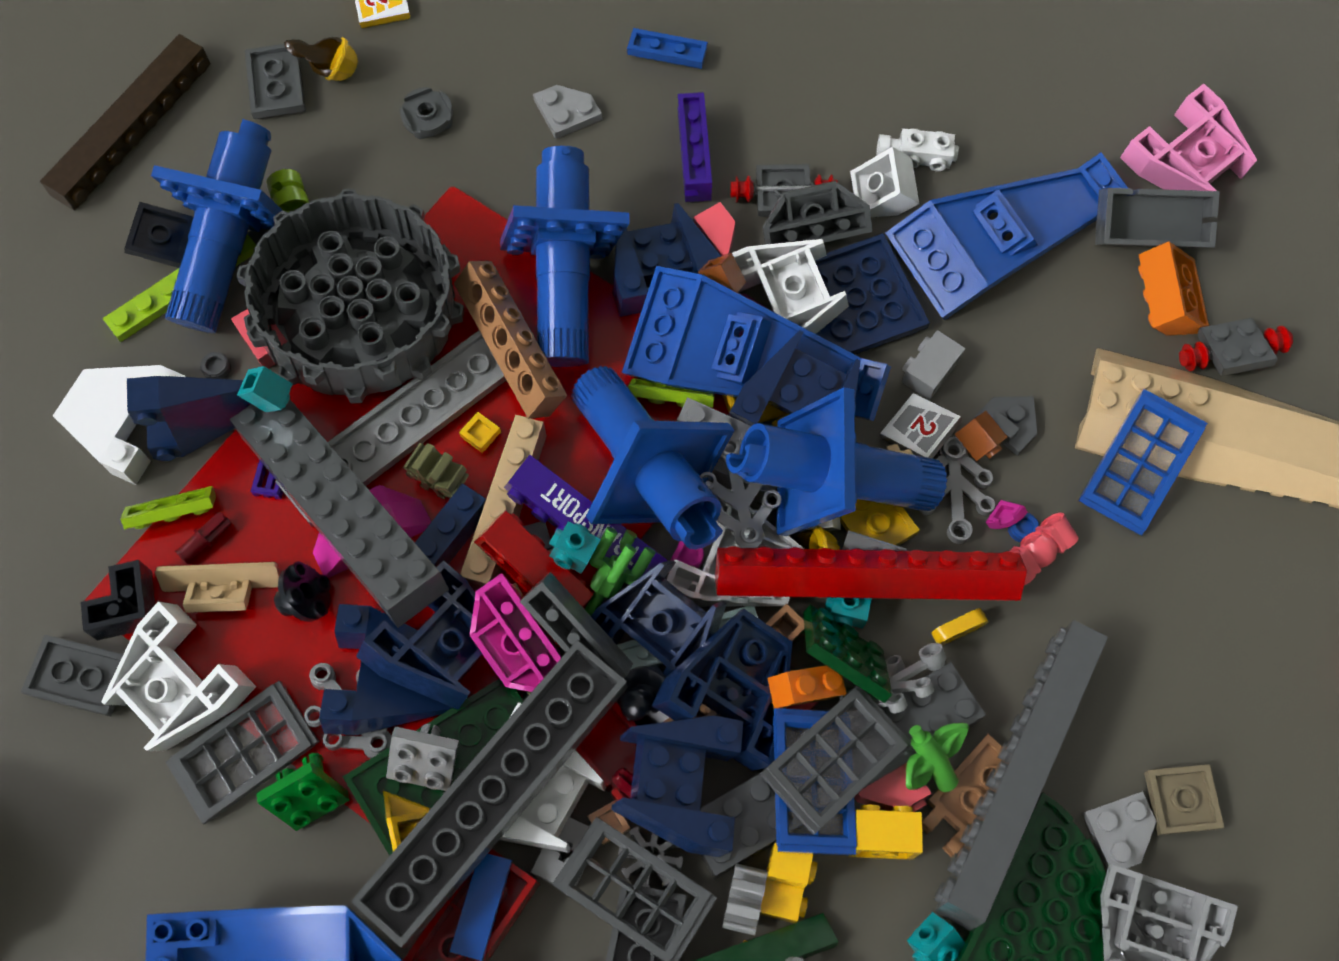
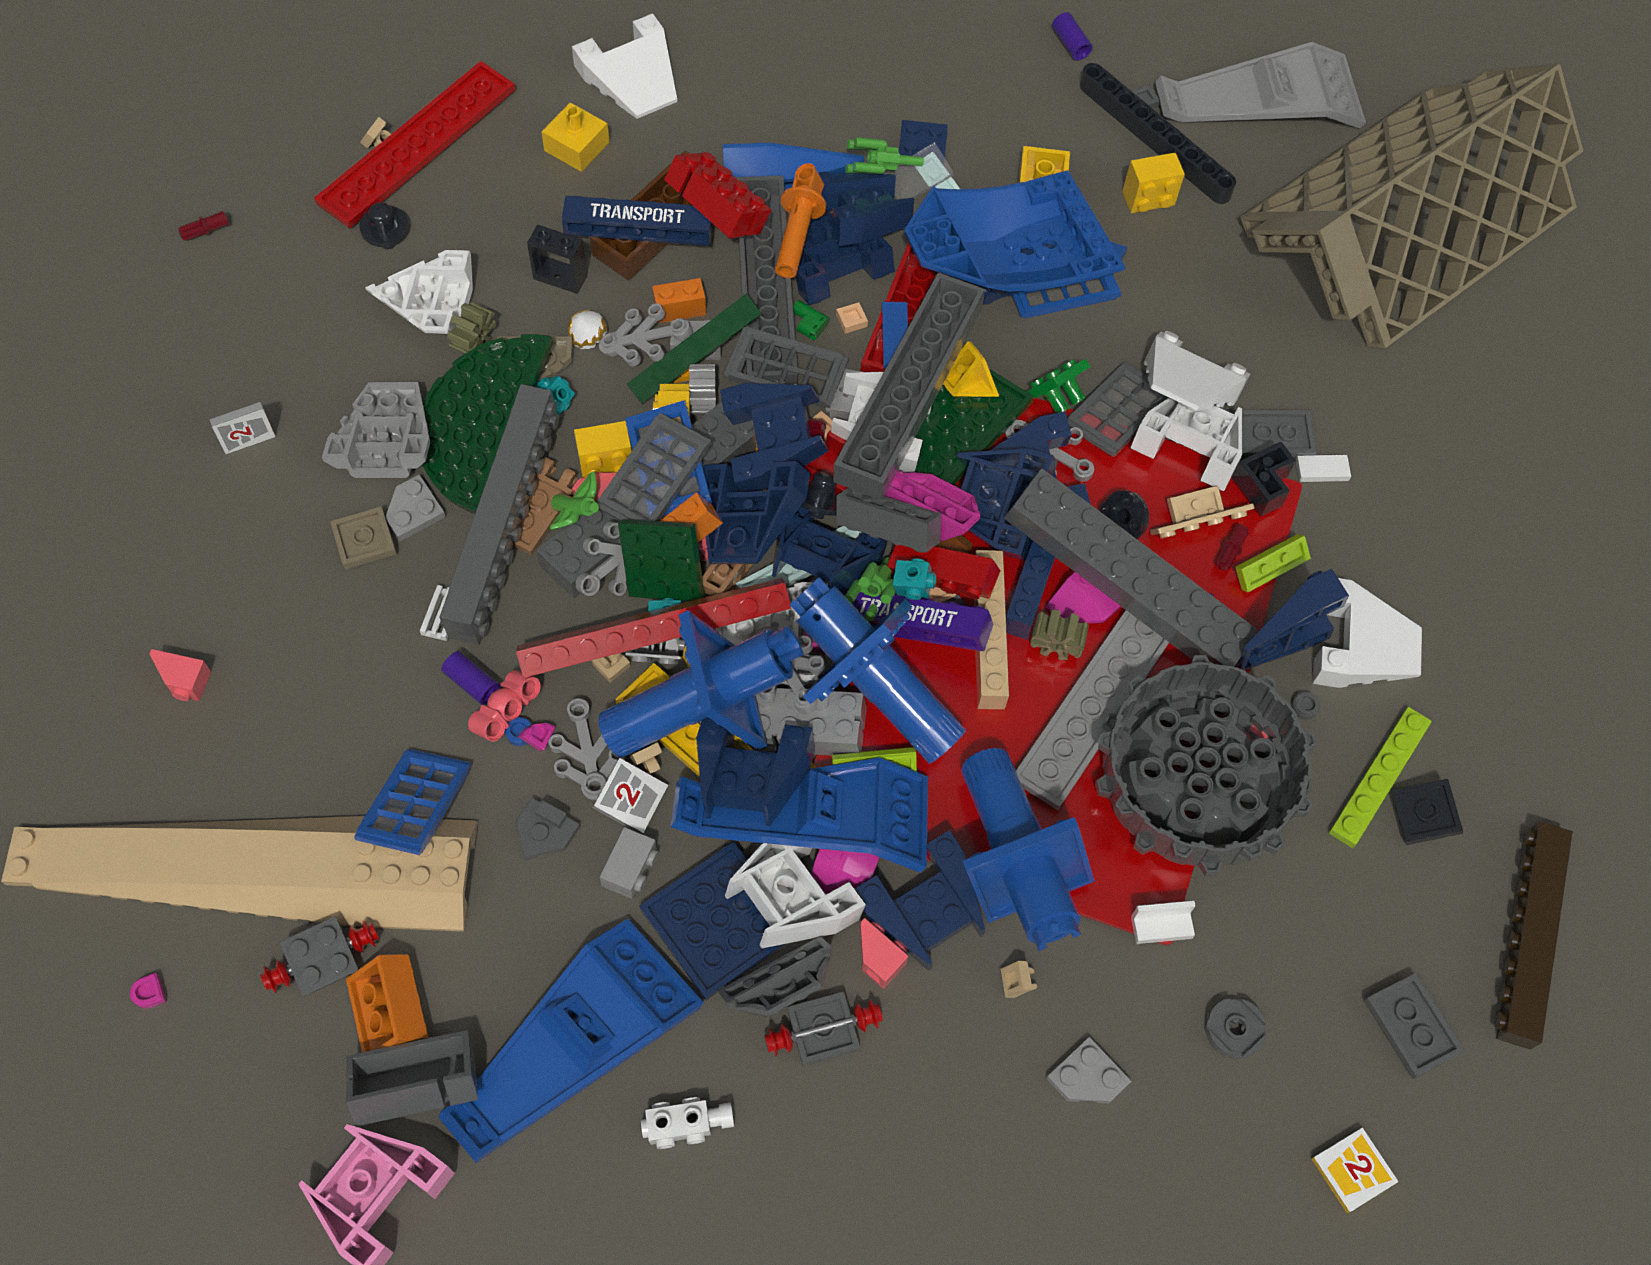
camera: 160 degrees right, 5 degrees down
(46, 620) = (1323, 468): none -> white tile
(147, 751) = (1191, 377): none -> white wedge
(224, 210) = (1365, 823): blue piece -> none
(265, 389) = (1234, 639): teal brick -> none
(287, 189) = (1327, 886): lime wheel -> none
(328, 57) = (1368, 1063): dark brown piece -> none
(422, 757) = (976, 413): light grey plate -> none
(451, 197) = (1163, 922): none -> white panel
(480, 432) = (1037, 689): yellow plate -> none
(510, 339) = (1042, 762): medium nougat brick -> none
(601, 187) = (1017, 979): none -> tan tile
(667, 48) = (1004, 1186): blue plate -> none
(694, 147) = (933, 1048): dark purple brick -> none
(725, 272) = (858, 871): dark orange brick -> none
(886, 183) = (714, 1059): white slope -> none
(959, 627) = (572, 621): yellow beam -> none
(982, 436) = (570, 795): dark orange brick -> none
(1071, 592) = (469, 677): none -> dark purple pin
(1105, 662) = (439, 592): none -> white tile

